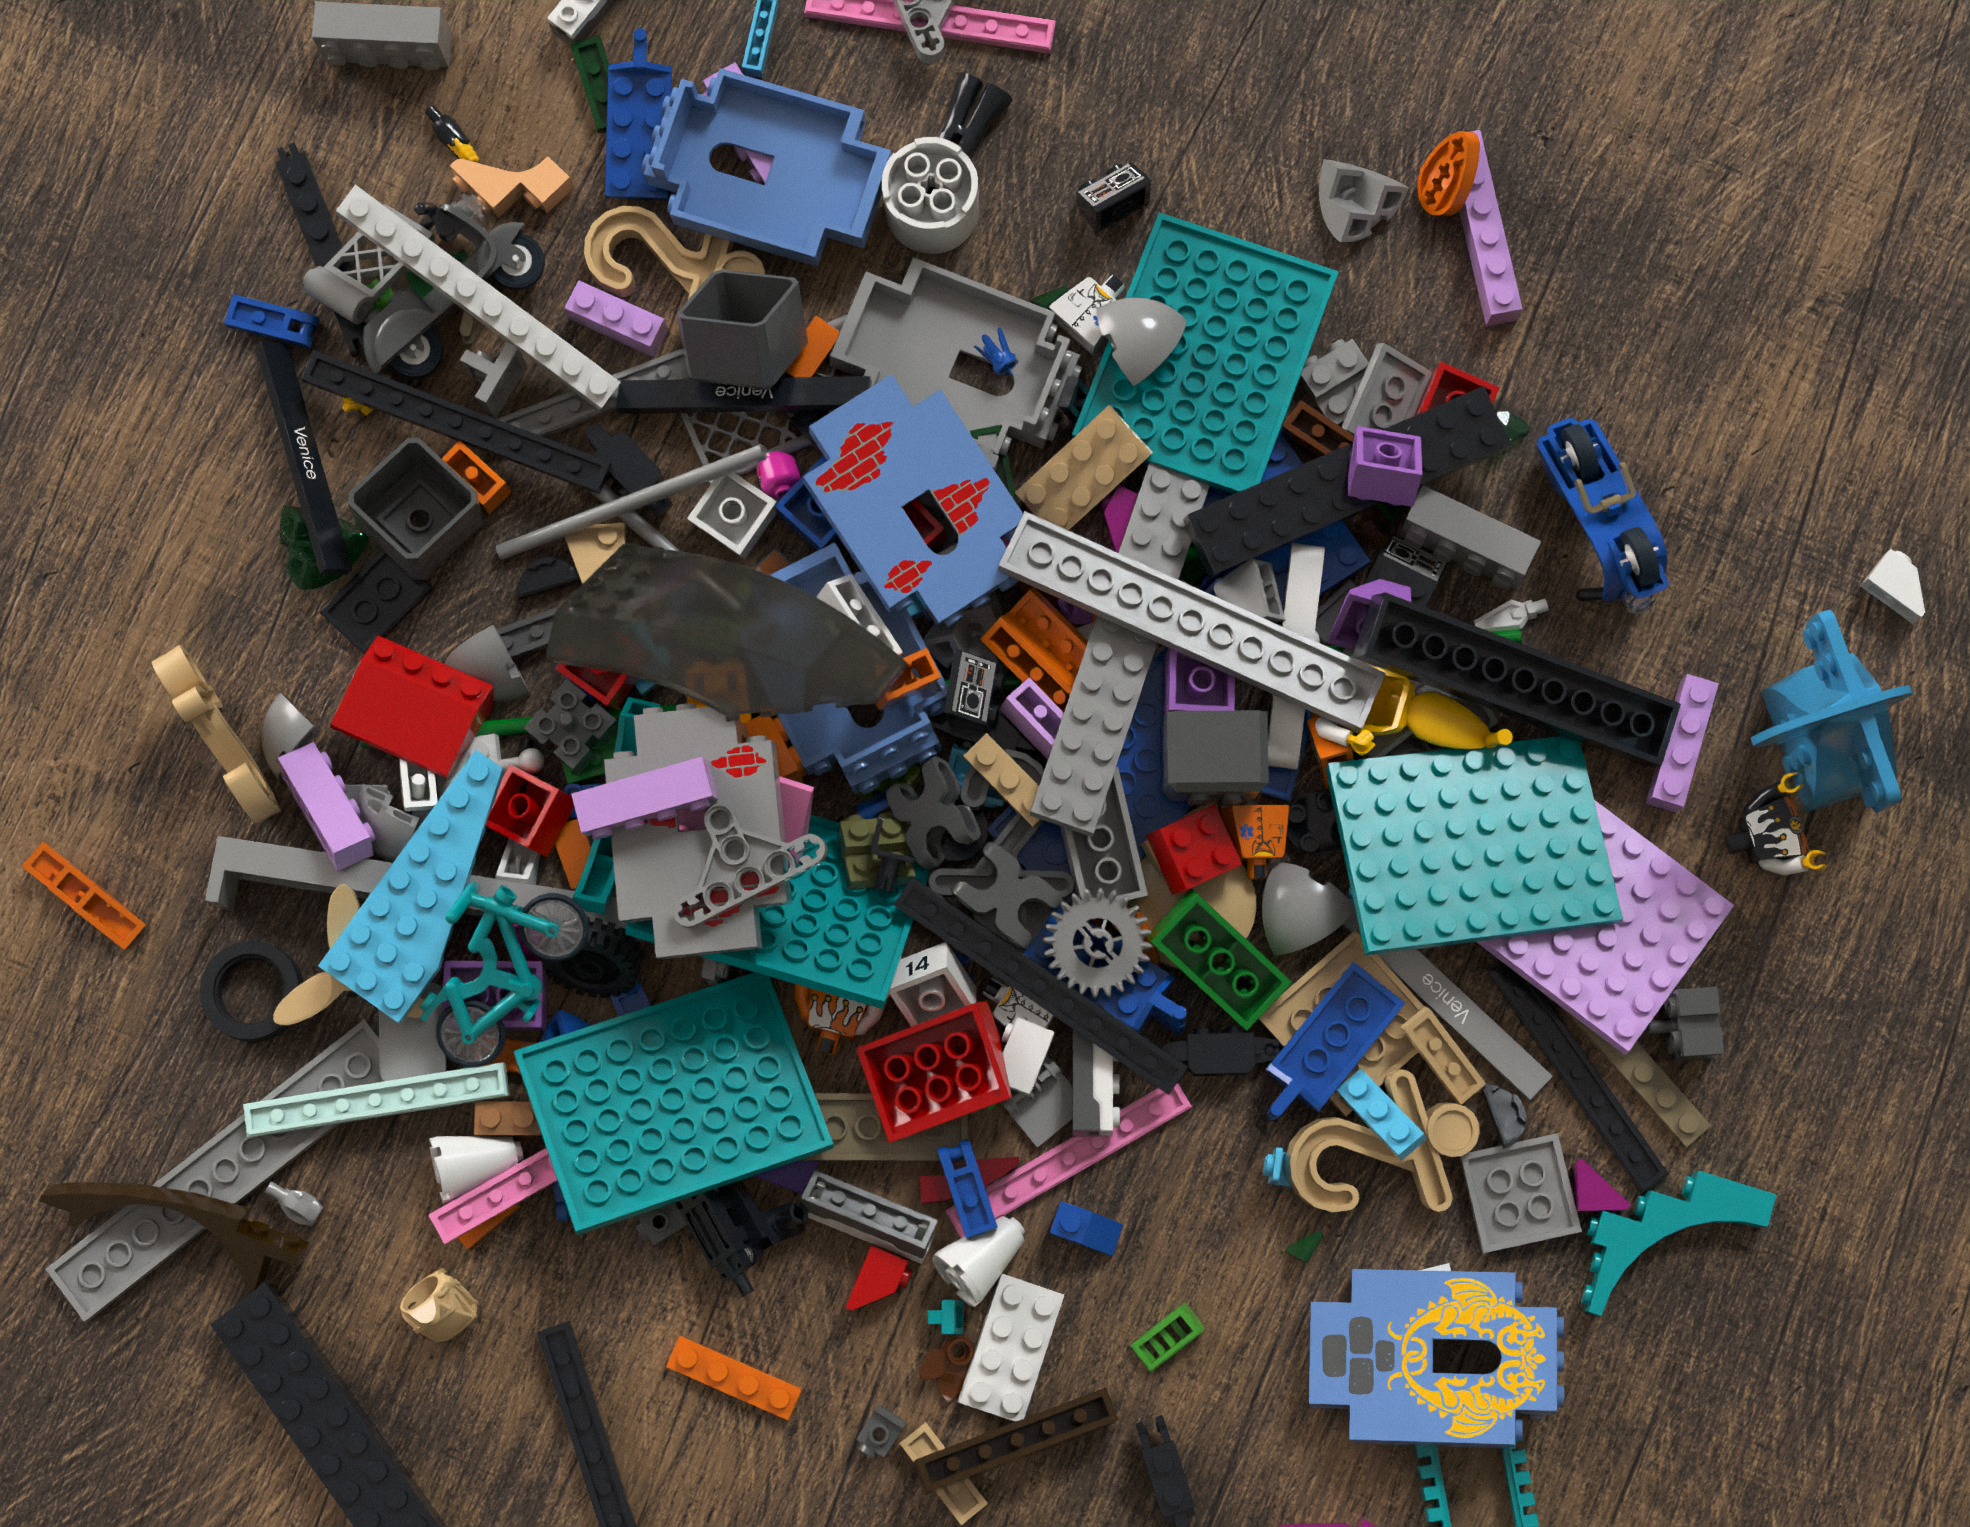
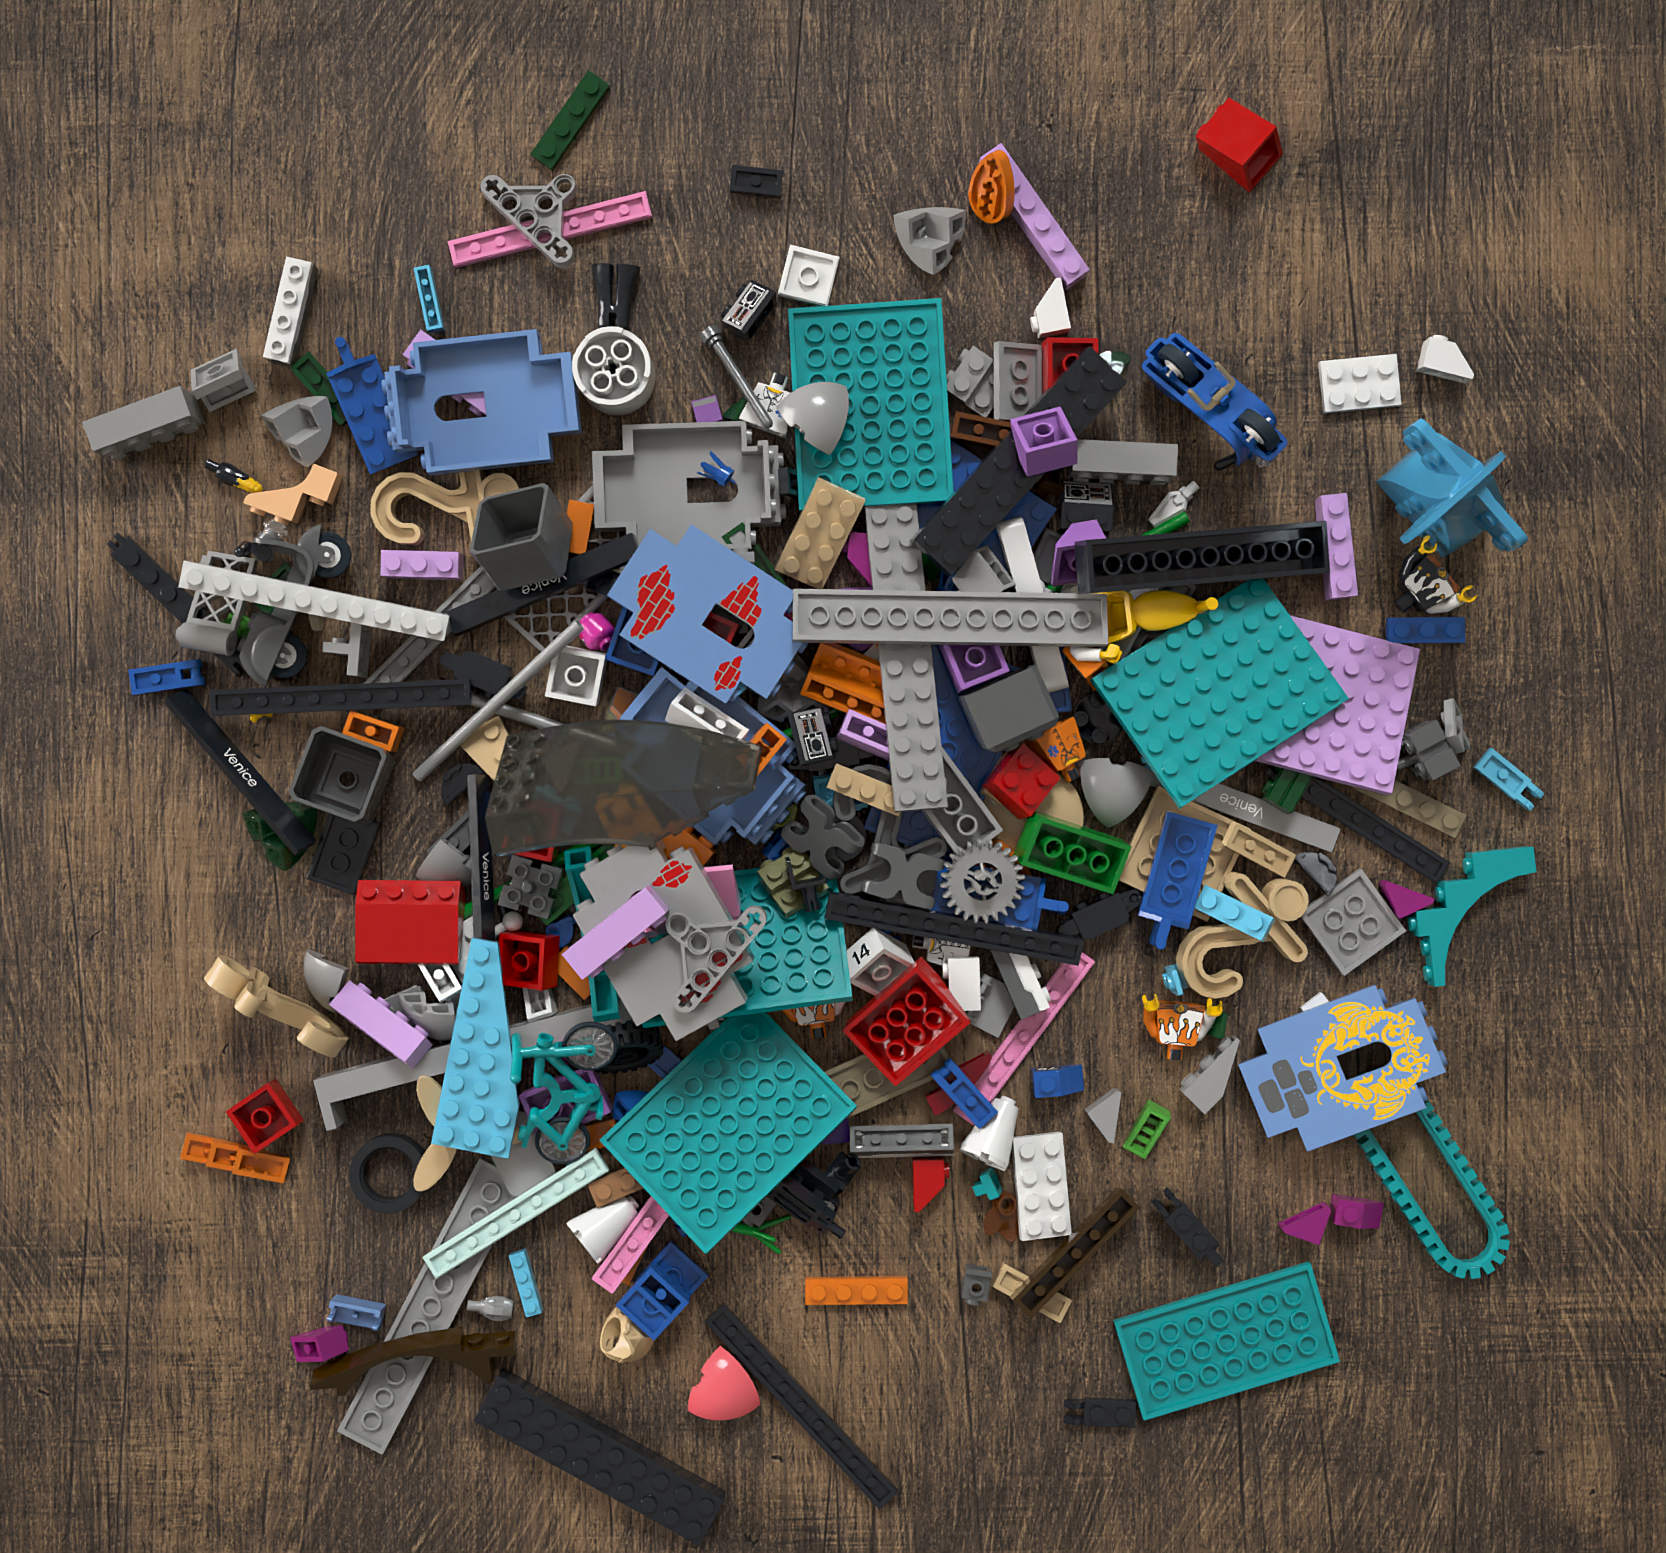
camera: 25 degrees left, 10 degrees up
(75, 1156) = (320, 1344): none -> magenta slope
(135, 1140) = (356, 1312): none -> medium blue hinge
(141, 859) = (264, 1116): none -> red brick
(349, 1192) = (526, 1282): none -> medium azure piece
(488, 28) = (221, 381): none -> light grey bracket
(504, 1268) = (662, 1290): none -> blue bracket
(522, 1423) = (723, 1390): none -> coral brick
(526, 673) = (481, 858): none -> black tile
(553, 113) = (302, 427): none -> light grey brick
(648, 1254) = (764, 1238): none -> green plant
(1017, 283) = (707, 409): none -> medium lavender tile
(1059, 210) = (713, 338): none -> dark grey piece
(1124, 1294) = (1105, 1113): none -> light grey slope
(1184, 61) = (756, 181): none -> black plate
(1198, 188) = (808, 276): none -> white tile
(1259, 1221) = (1178, 1022): none -> torso
(1267, 1311) = (1210, 1080): none -> light grey slope
(1459, 340) = (1051, 313): none -> white slope
(1504, 997) = (1285, 789): none -> dark green brick
(1735, 1013) = (1453, 723): none -> light grey hinge
(1751, 887) = (1425, 630): none -> blue plate
(1756, 245) = (1240, 143): none -> red slope
(1778, 1103) = (1507, 777): none -> medium azure hinge
(1786, 571) = (1359, 383): none -> white plate

